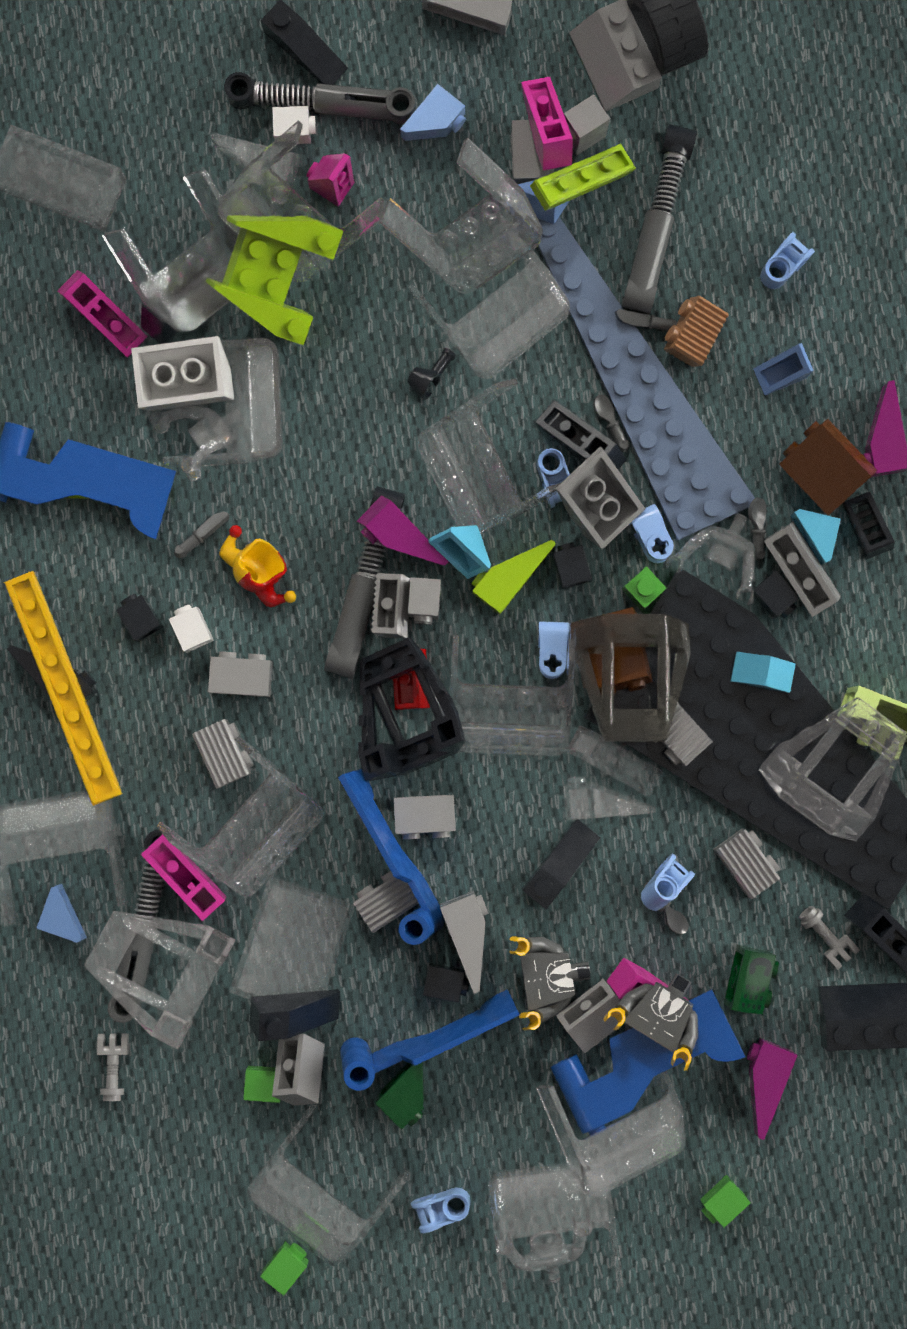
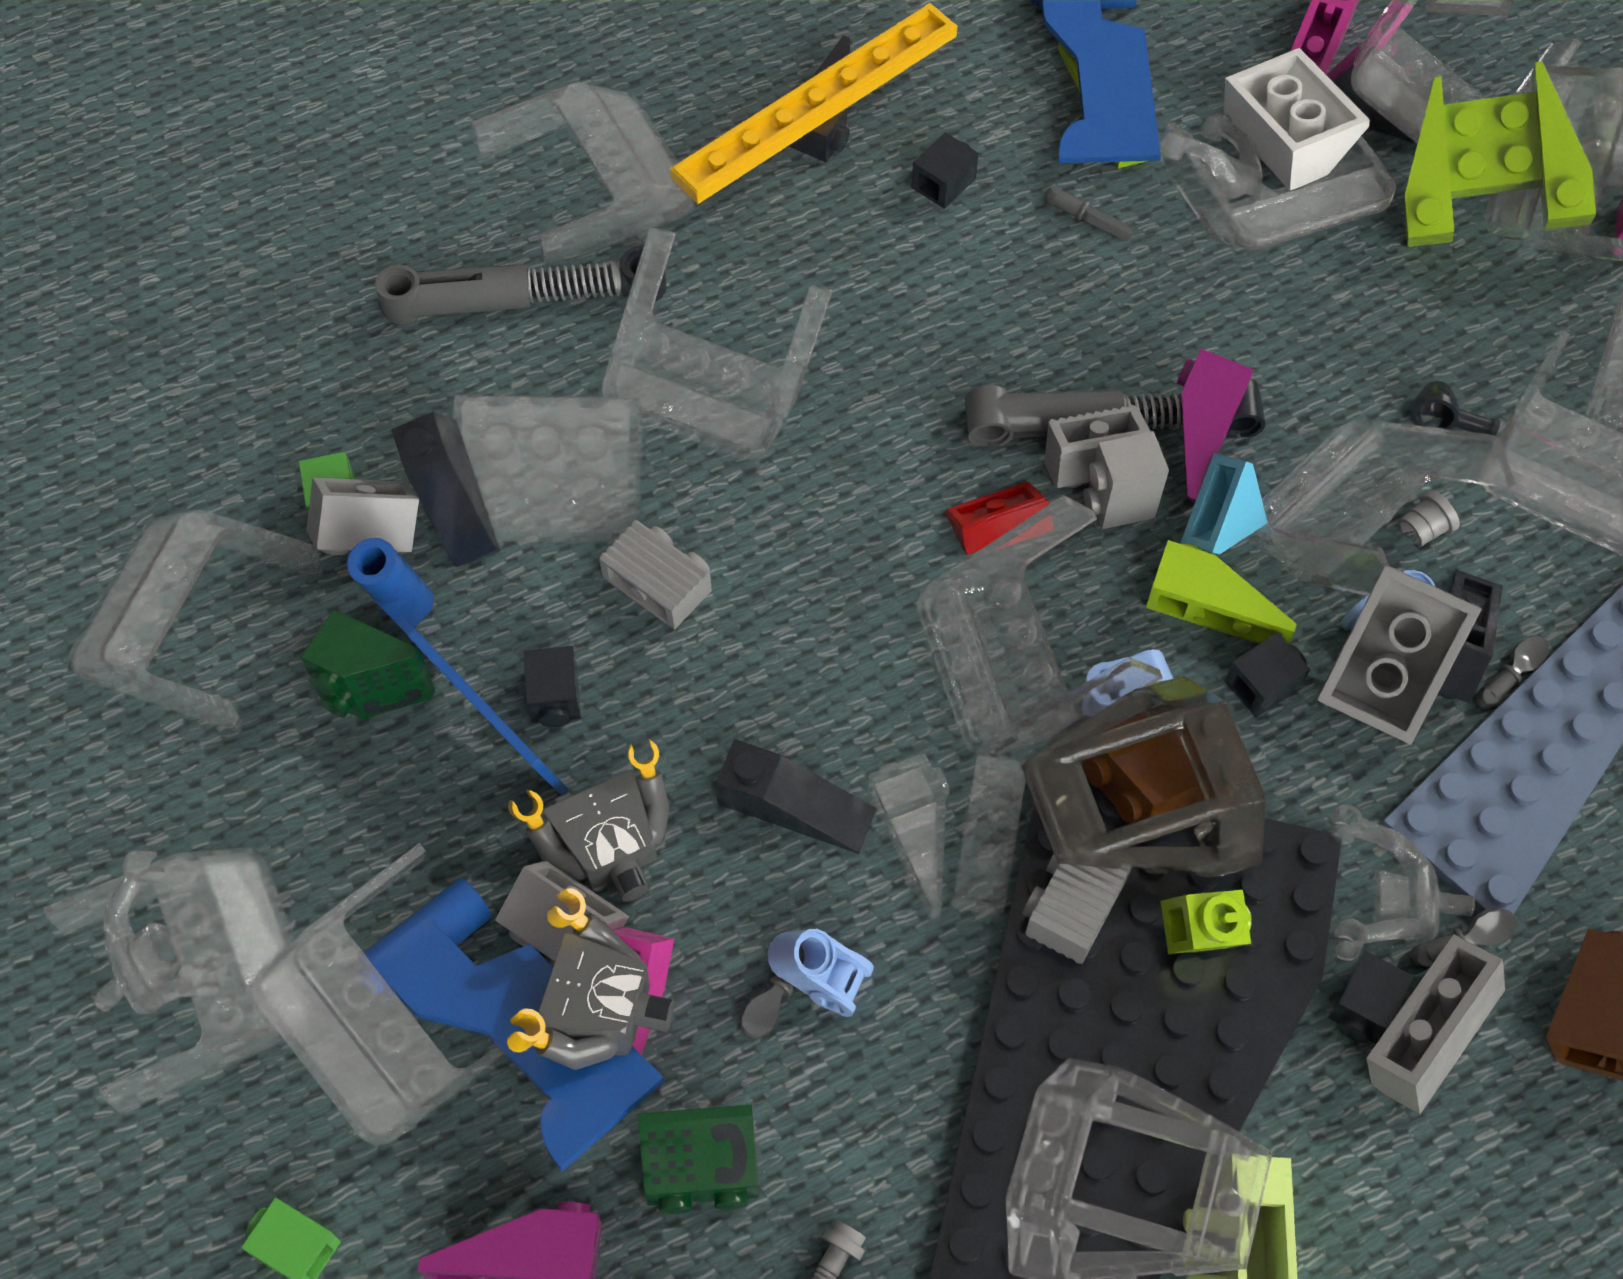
camera: 70 degrees right, 25 degrees down
(59, 916) = (506, 191): medium blue slope -> none
(112, 1092) = (338, 303): light grey hinge -> none
(184, 877) = (591, 321): dark pink slope -> none
(190, 628) = (954, 229): white brick -> none
(191, 986) = (398, 337): clear windscreen -> none
(222, 753) = (777, 313): light grey brick -> none
(239, 675) = (915, 302): light grey brick -> none
(256, 568) = (1075, 278): yellow piece -> none
(285, 1267) = (52, 594): bright green brick -> none
(421, 750) = (918, 557): black windscreen -> none
(424, 815) = (803, 584): light grey brick -> none
(428, 918) = (655, 623): blue door -> none
(435, 1211) = (184, 784): light blue piece -> none
(467, 928) = (634, 686): light grey slope -> none
(501, 425) = (1430, 518): none -> light grey piece
(644, 588) = (1287, 784): bright green brick -> none
(651, 529) = (1375, 773): light blue piece -> none
(716, 670) = (1206, 921): none -> lime brick
(747, 862) = (901, 1095): light grey brick -> none
(763, 671) = (1238, 1014): medium azure slope -> none
(818, 531) = (1512, 1038): medium azure slope -> none
(880, 547) = (1539, 1150): black slope -> none

